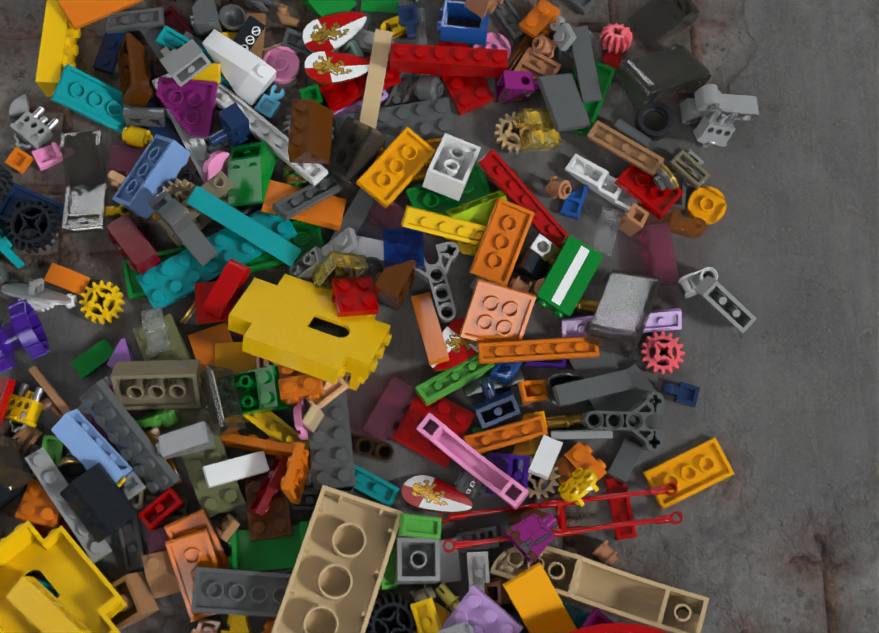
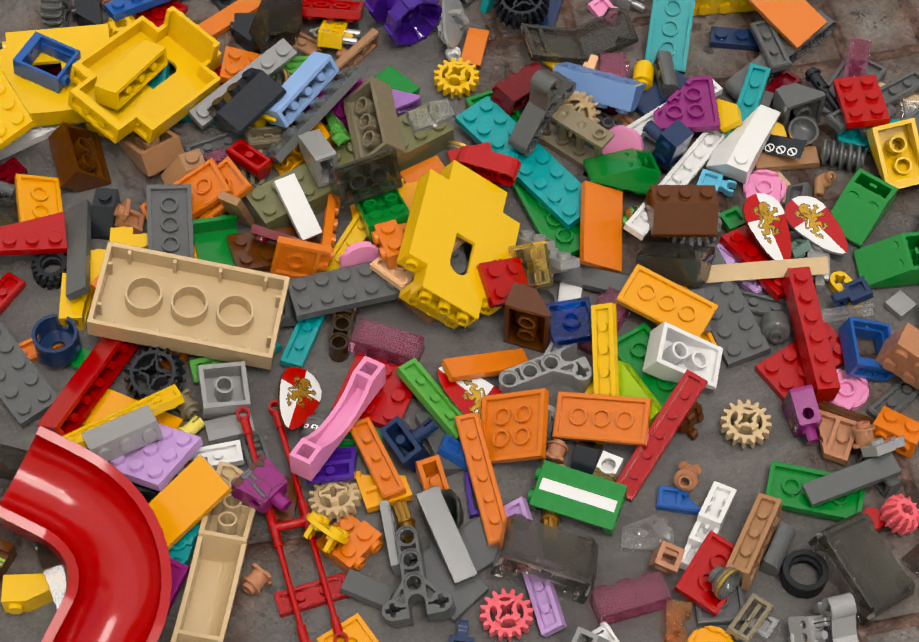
camera: 85 degrees right, 20 degrees down
(133, 485) = (269, 133): light grey tile -> none
(134, 72) = (711, 54): reddish brown slope -> none
(184, 62) = (730, 88): light grey hinge -> none
(243, 225) = (559, 168): teal tile -> none
(307, 197) = (608, 225): dark grey tile -> none
(313, 418) = (358, 255): tan tile -> none
(420, 526) = (258, 377): bright green tile -> none
(542, 133) = (754, 442): clear yellow piece -> none
(545, 457) = (355, 494): white tile -> none
(563, 102) = (794, 461): dark grey tile -> none

